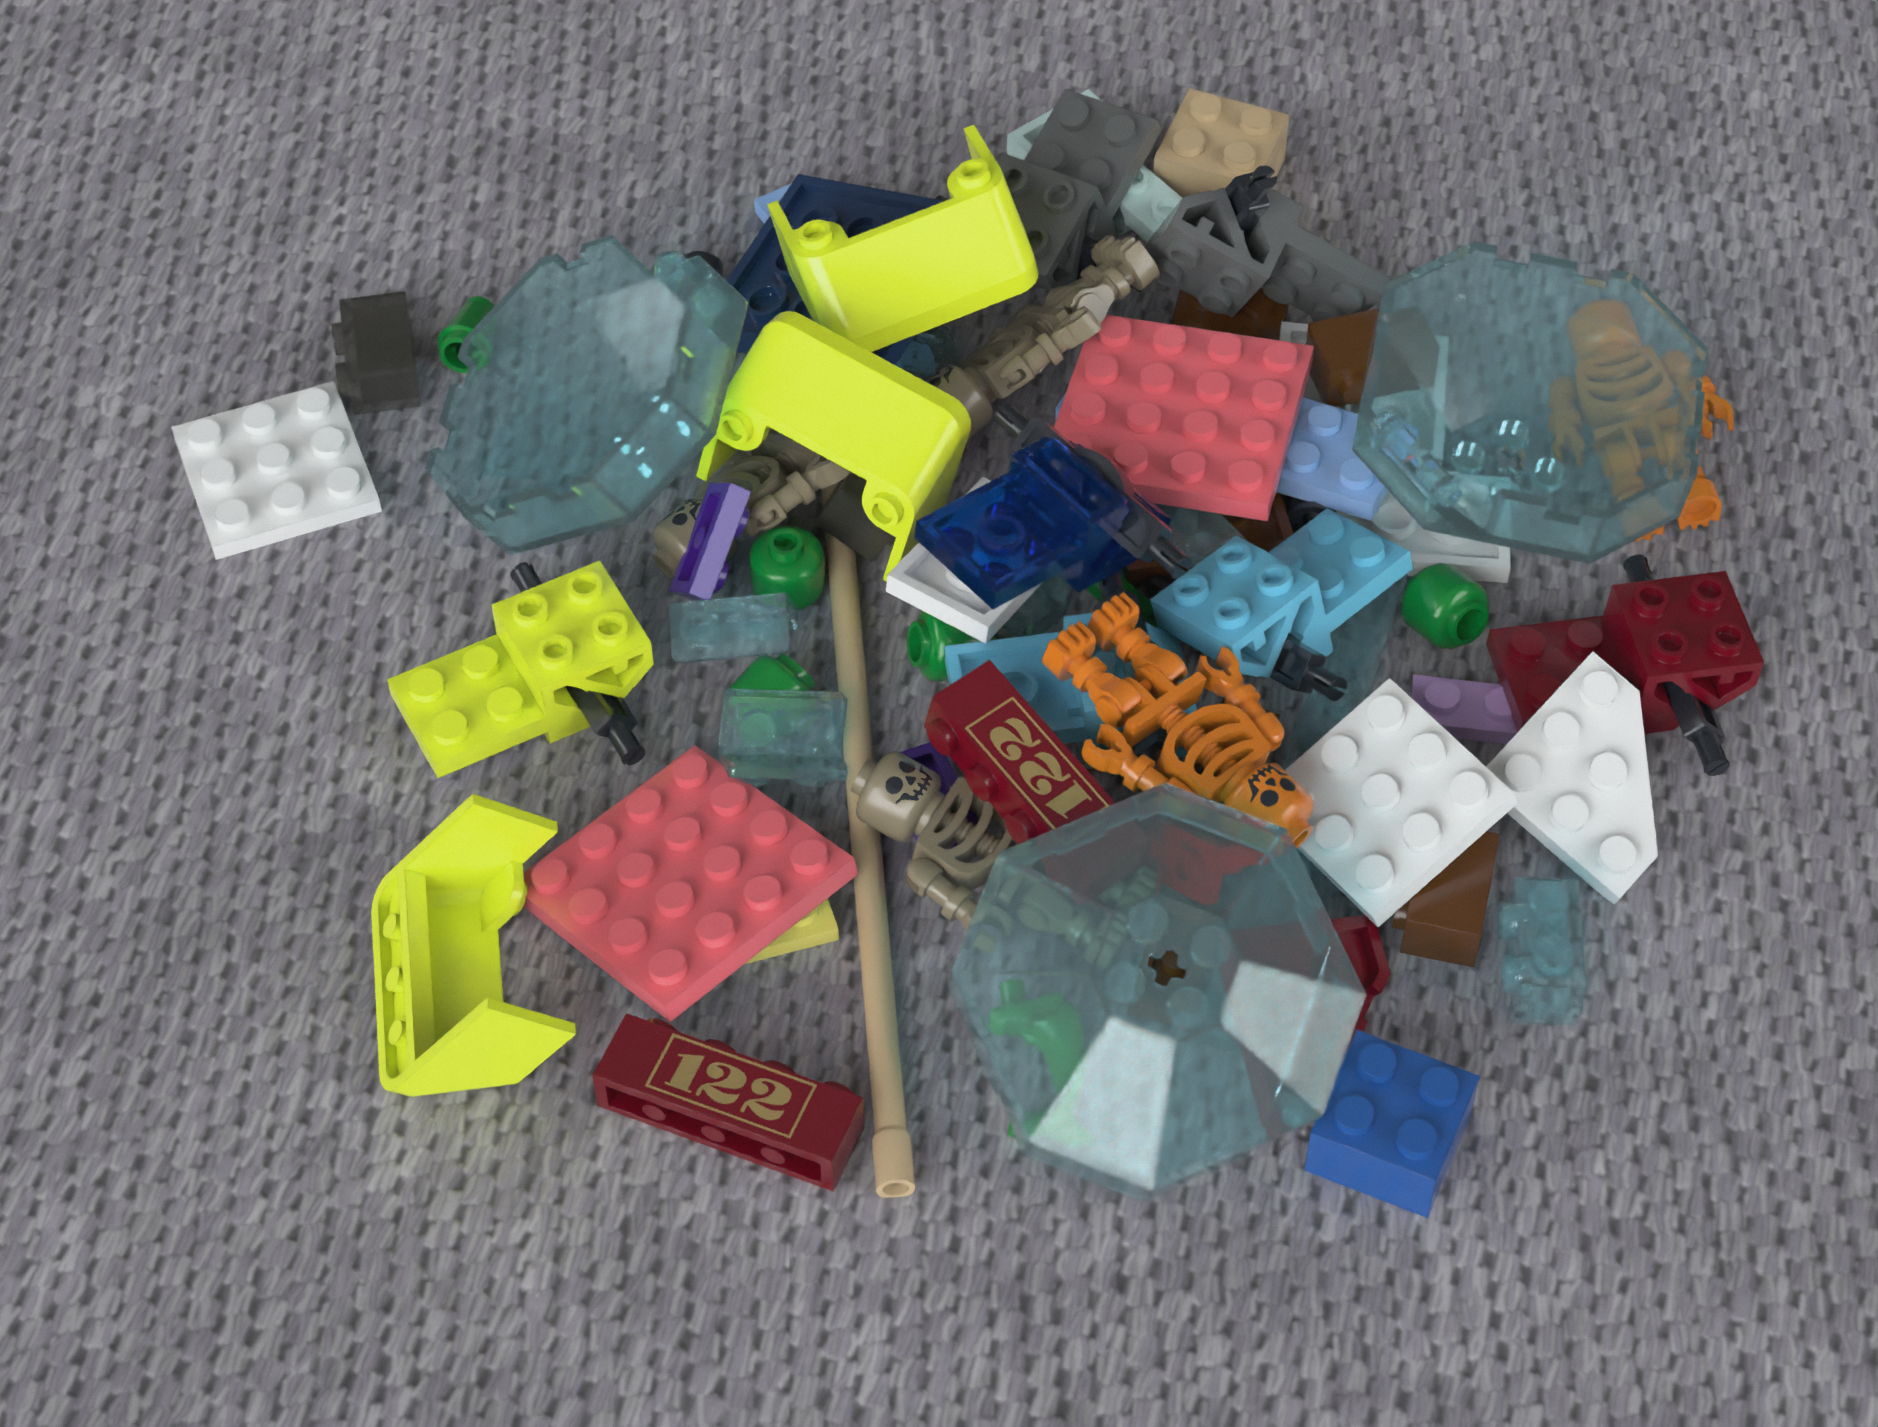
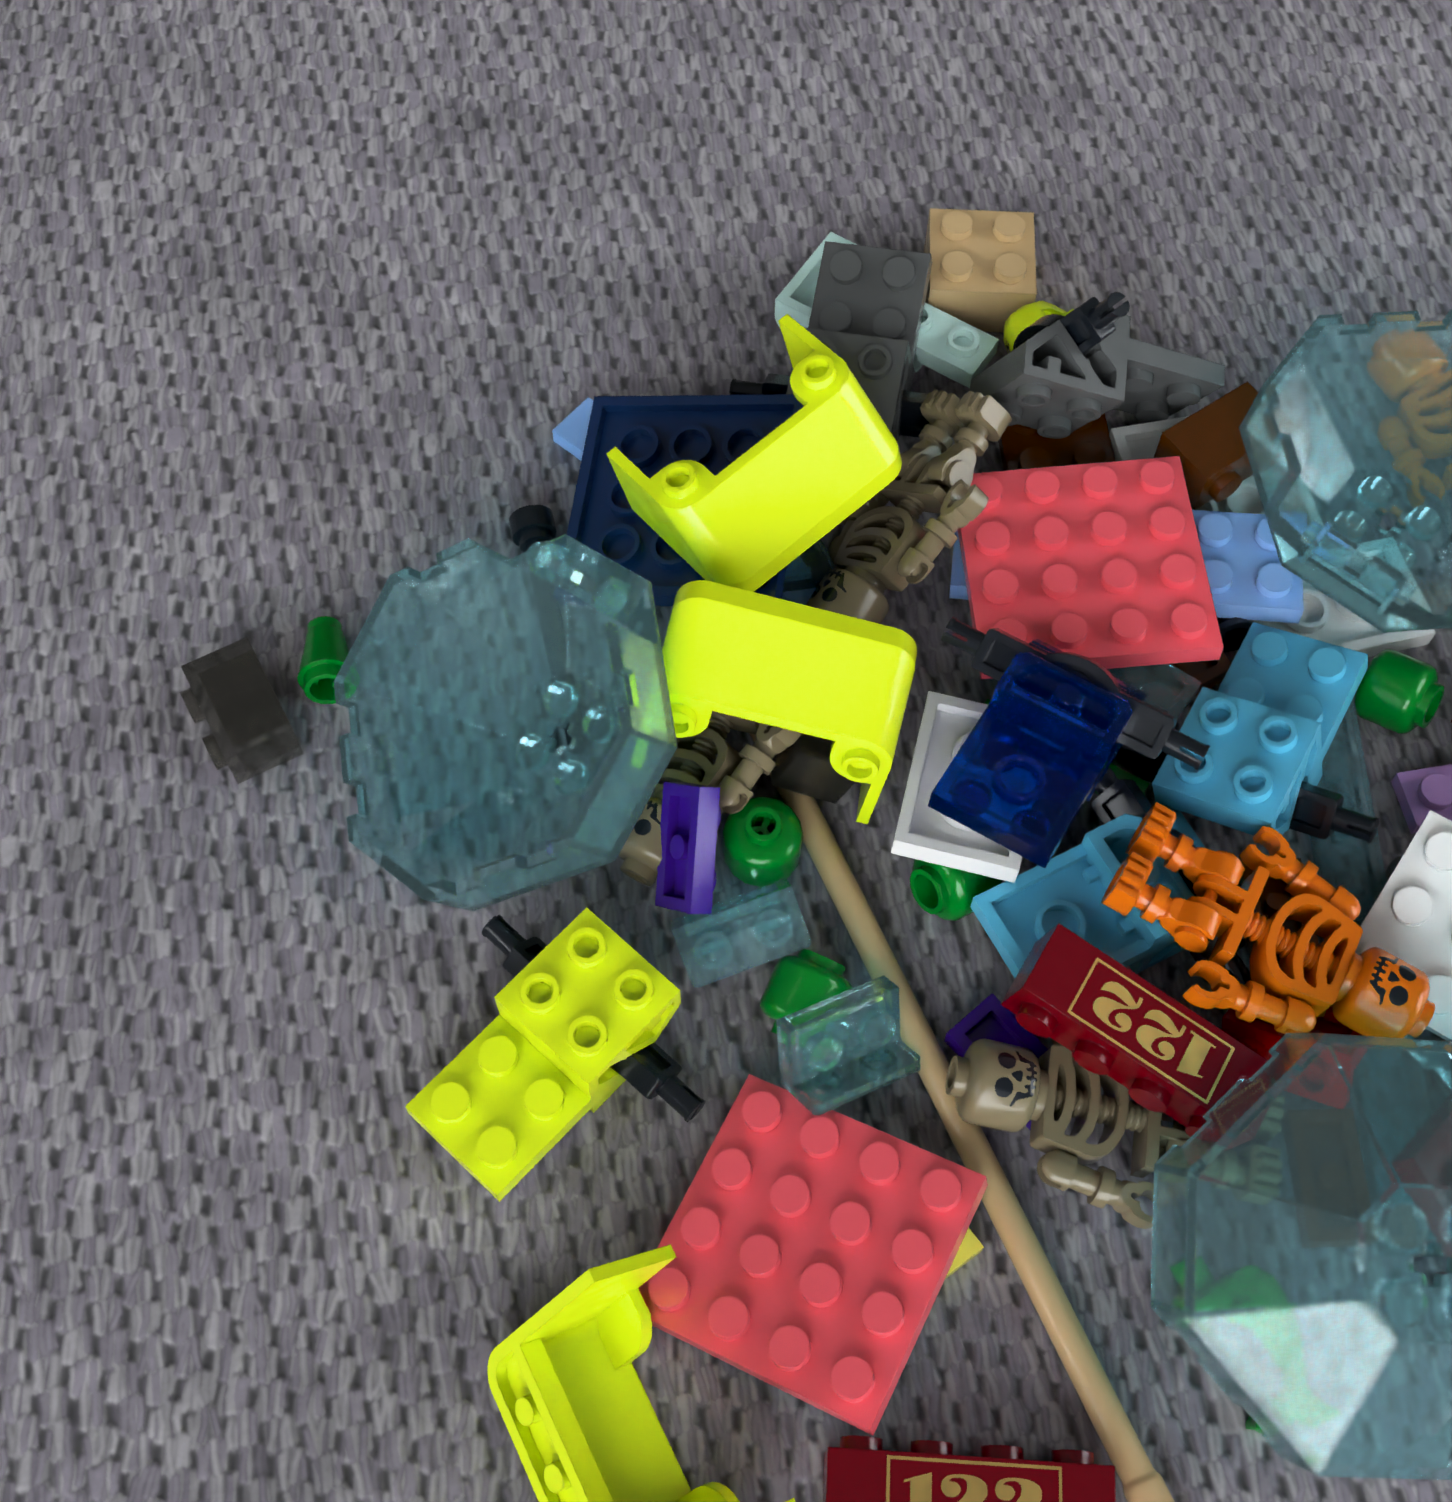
camera: 20 degrees left, 10 degrees up
(275, 470) = (180, 876): white plate -> none

